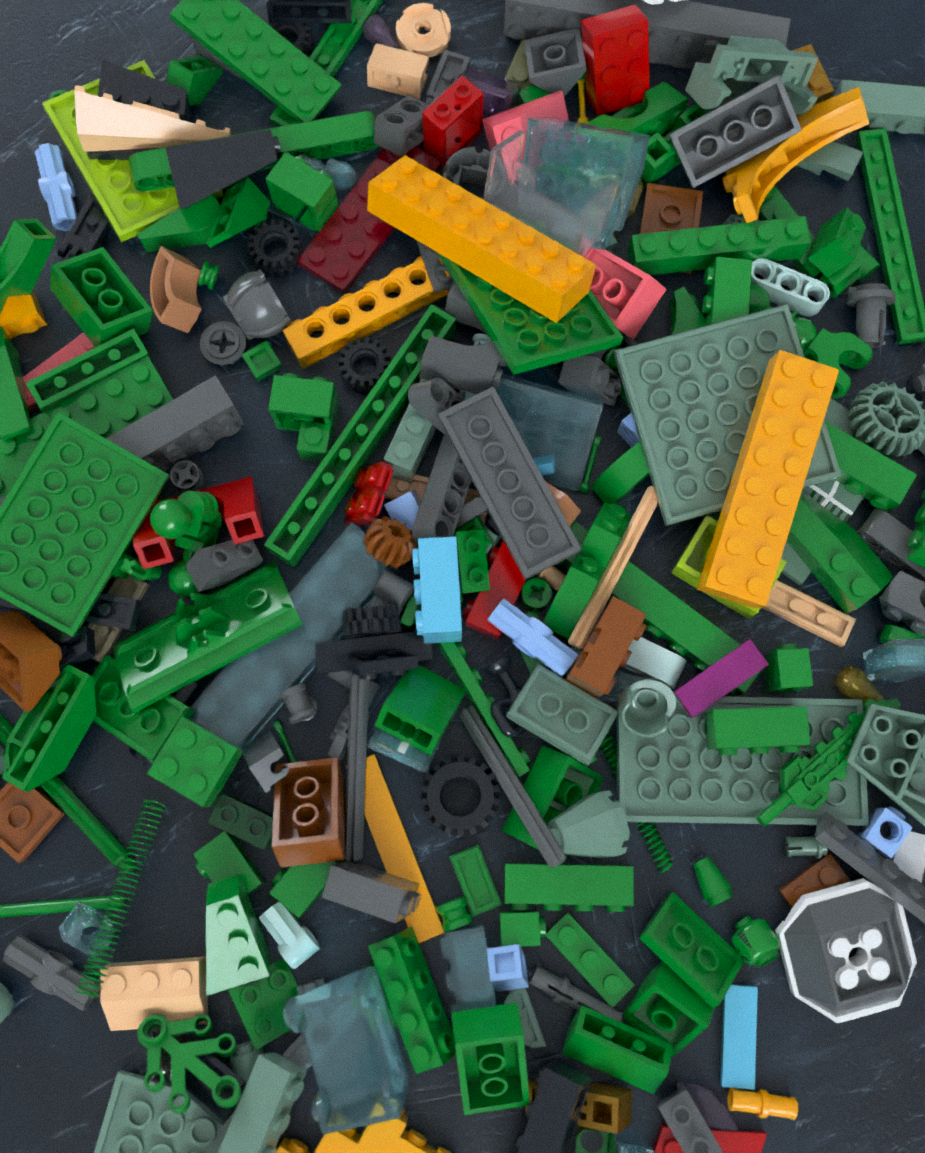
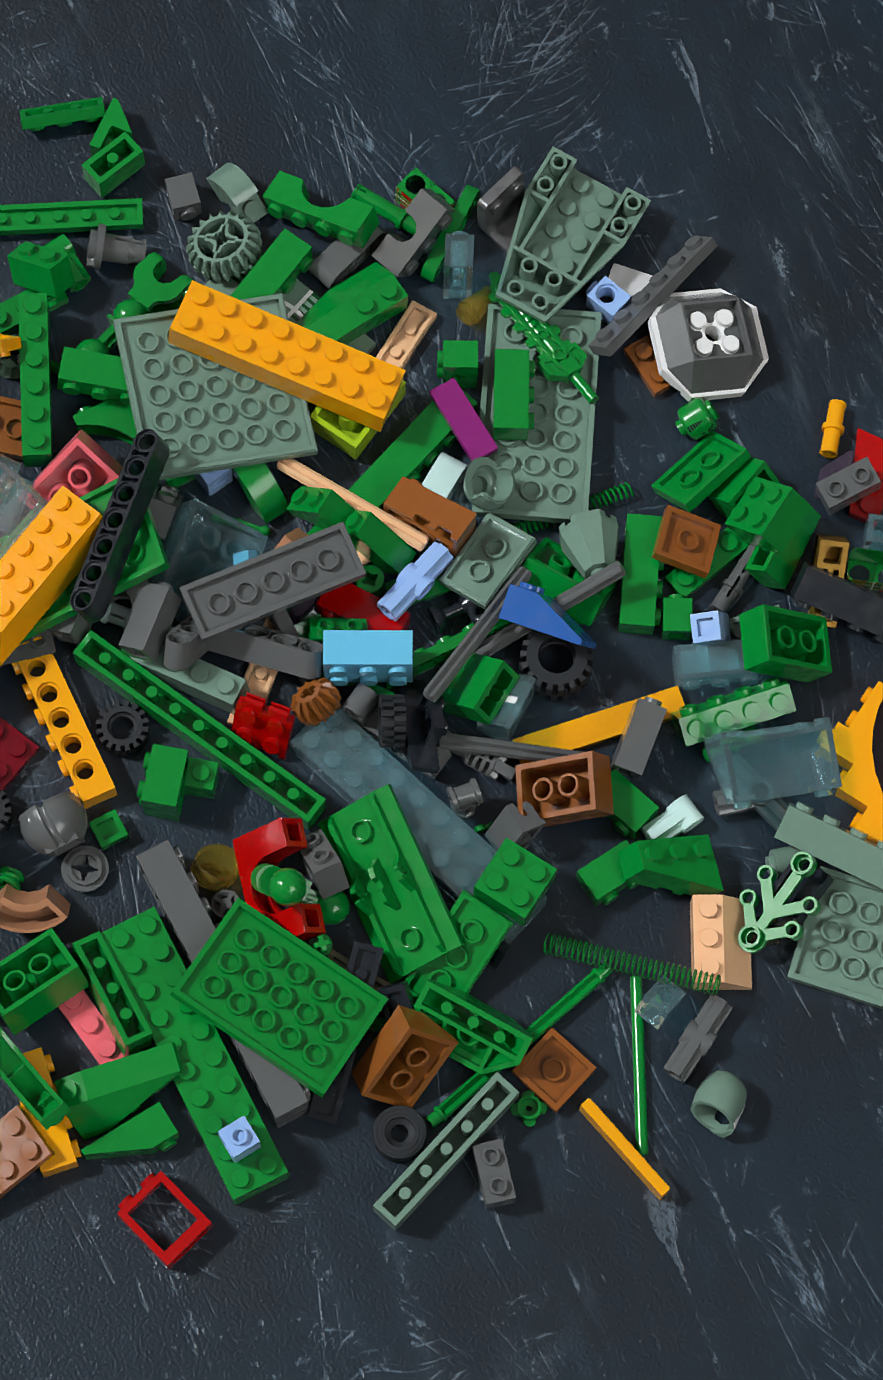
camera: 90 degrees left, 5 degrees down
(225, 462) = (215, 867): none -> clear yellow hat
(243, 821) = (571, 853): dark green brick -> none
(263, 1003) = (735, 841): green hinge -> none
(404, 508) = (280, 689): light blue brick -> none
(454, 914) = (661, 674): green wheel -> none
(474, 706) = (472, 639): none -> dark grey axle
(475, 880) = (632, 657): green tile -> none
(491, 779) = (532, 609): none -> blue slope
(556, 321) = (119, 526): none -> black beam
(605, 936) = (686, 541): none -> dark orange plate
(642, 1033) = (768, 515): none -> green brick
(712, 882) = (644, 450): green cone -> none
(739, 1037) = (778, 442): medium azure tile -> none
(800, 287) = (78, 310): light aqua beam -> none
(804, 846) = (616, 368): sand green pin -> none

